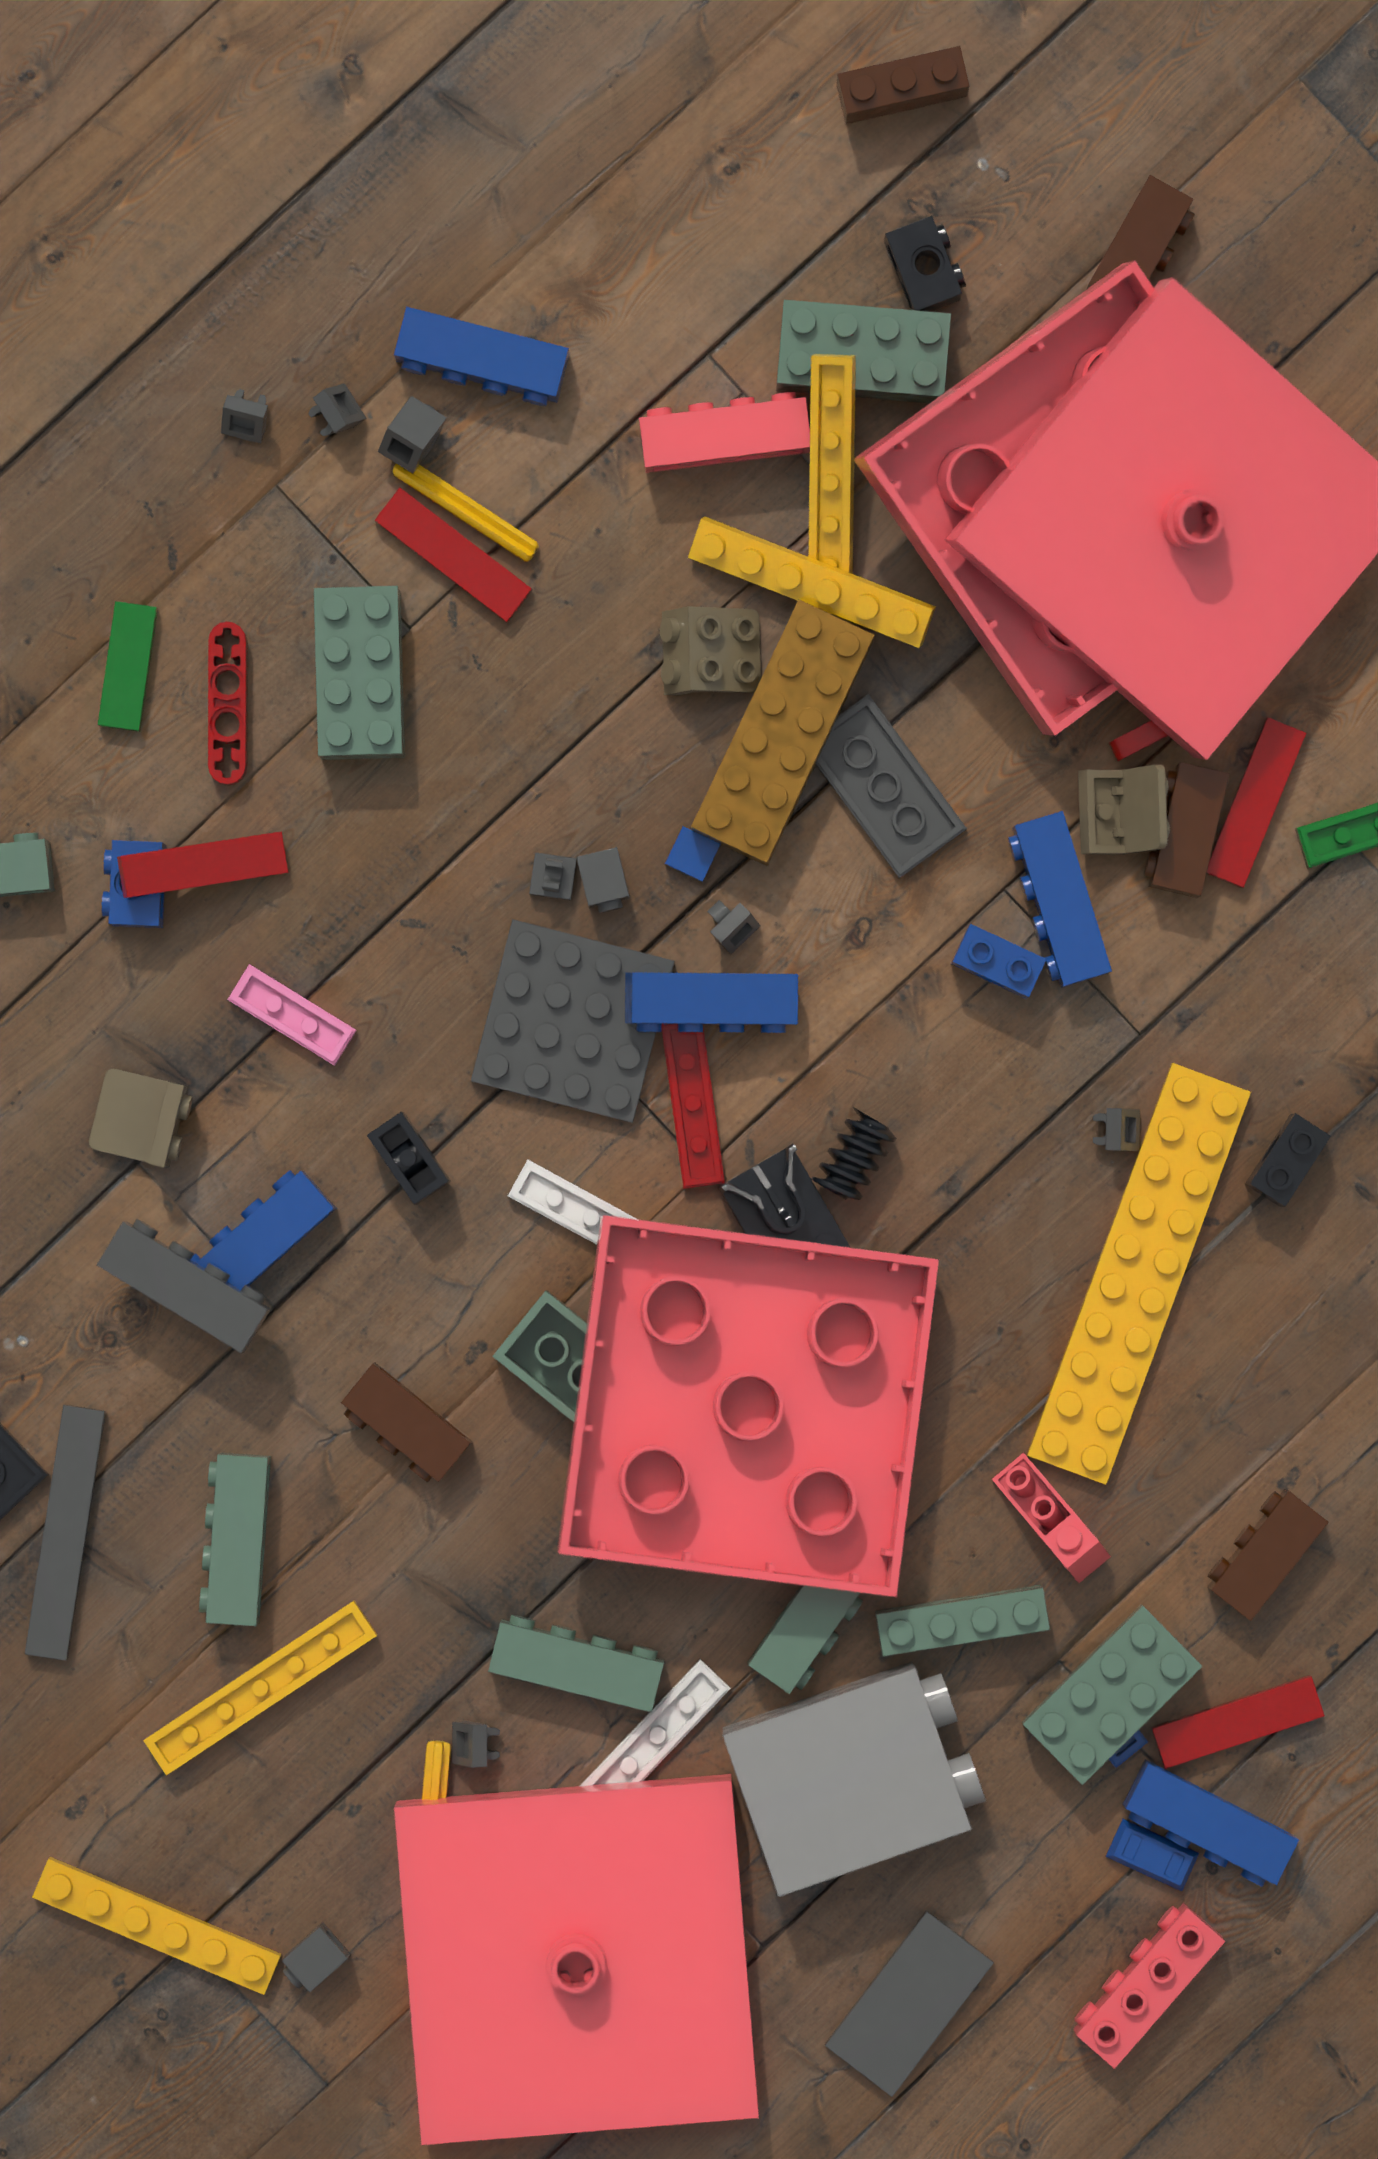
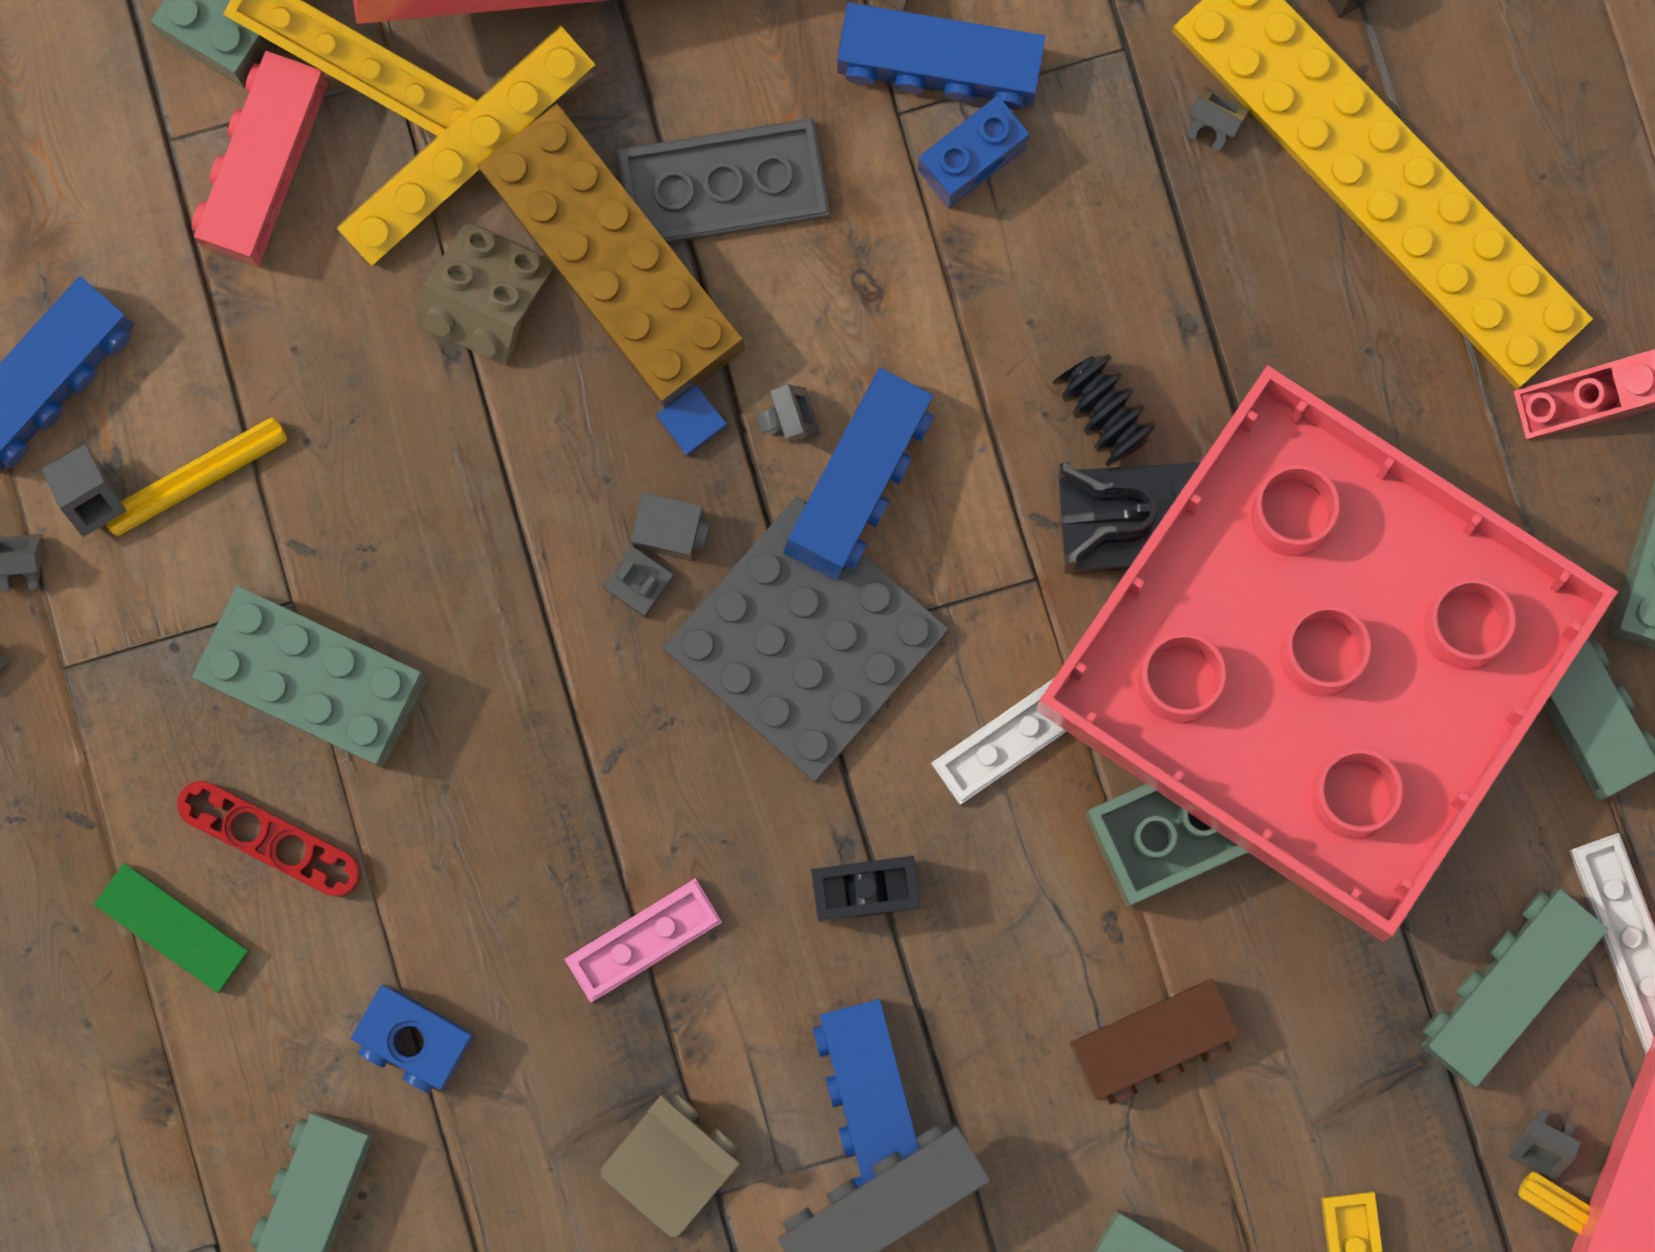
camera: 65 degrees left, 5 degrees down
(202, 864) = (428, 953): red tile -> none
(453, 555) = (237, 514): red tile -> none
(693, 1107) = (964, 556): red tile -> none

